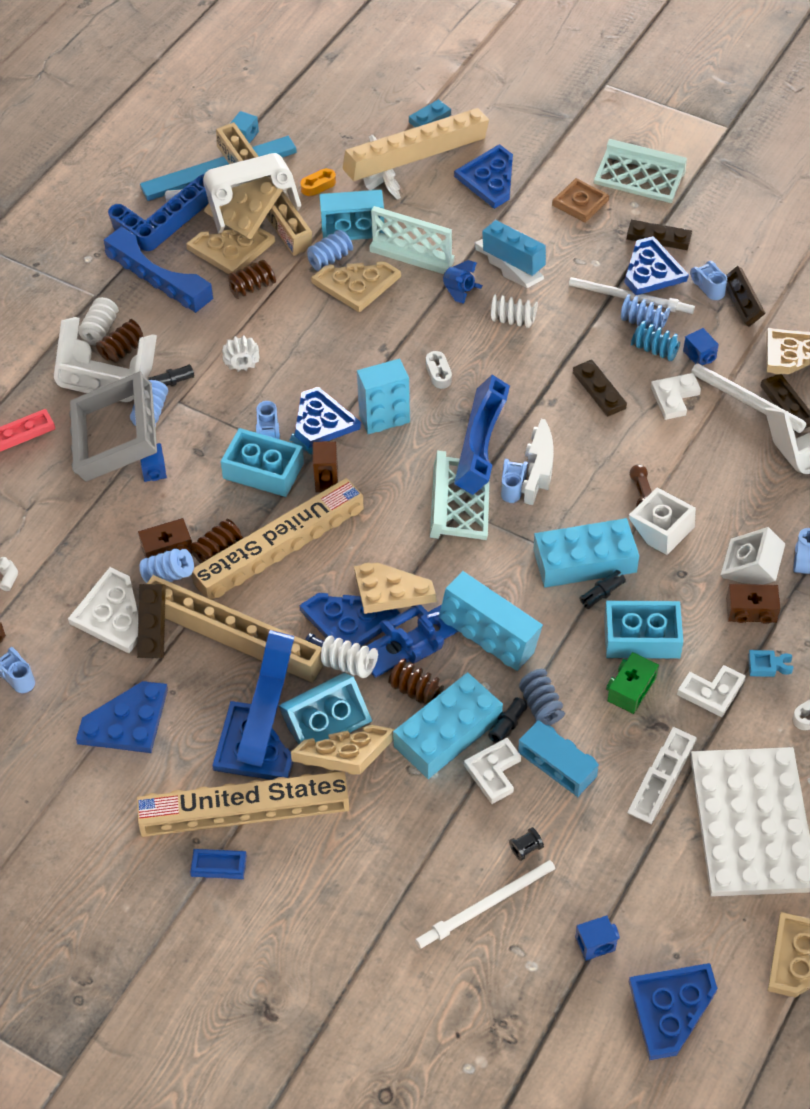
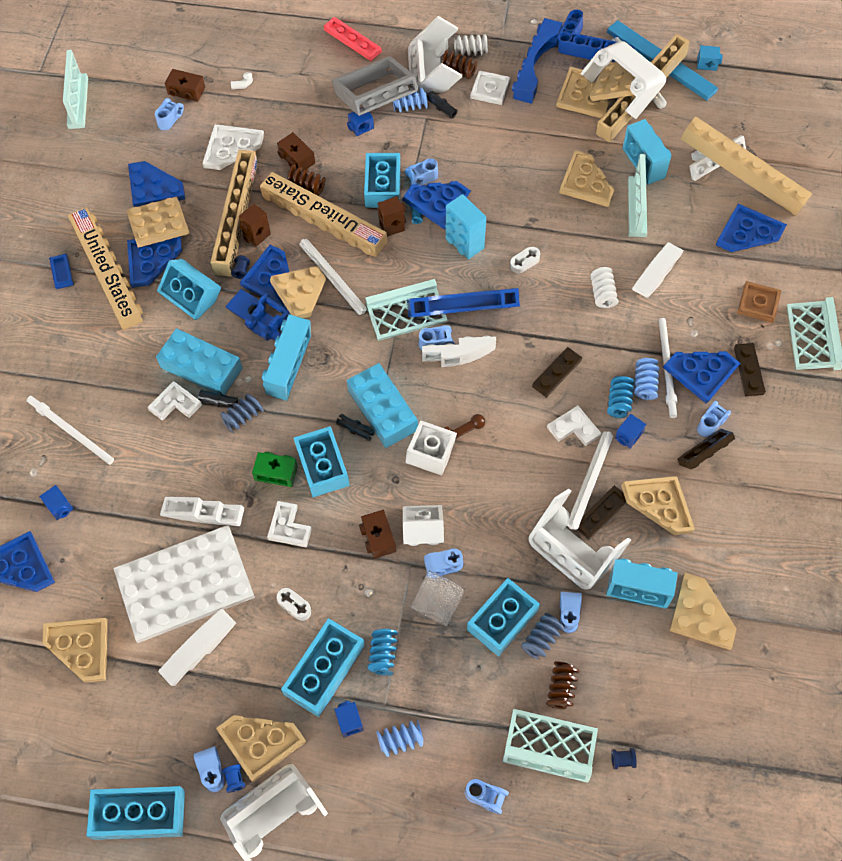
camera: 70 degrees right, 10 degrees up
(151, 621) = (222, 165): dark brown plate -> none
(169, 566) = (267, 157): light blue piece -> none
(170, 326) = (490, 87): none -> white tile
(199, 723) = (157, 221): none -> tan plate
(240, 353) = (476, 133): white gear -> none
(251, 277) = (554, 116): reddish brown piece -> none
(266, 698) = (163, 250): blue beam -> none
(268, 605) = (254, 225): none -> reddish brown brick
(318, 182) = (679, 123): light orange beam -> none
(329, 249) = (606, 151): light blue piece -> none
(344, 750) = (158, 308): tan plate -> none
(348, 657) = (229, 282): white piece -> none
(375, 556) = (333, 277): none -> white axle
(413, 682) = (228, 331): reddish brown piece -> none
(430, 113) = (797, 170): dark azure plate -> none
(459, 280) = (618, 244): blue brick -> none
(514, 247) = (660, 263): dark azure brick -> none
(526, 844) = (121, 440): black bush -> none
(558, 758) = (194, 439): dark azure brick -> none
(765, 664) = (325, 557): dark azure plate -> none

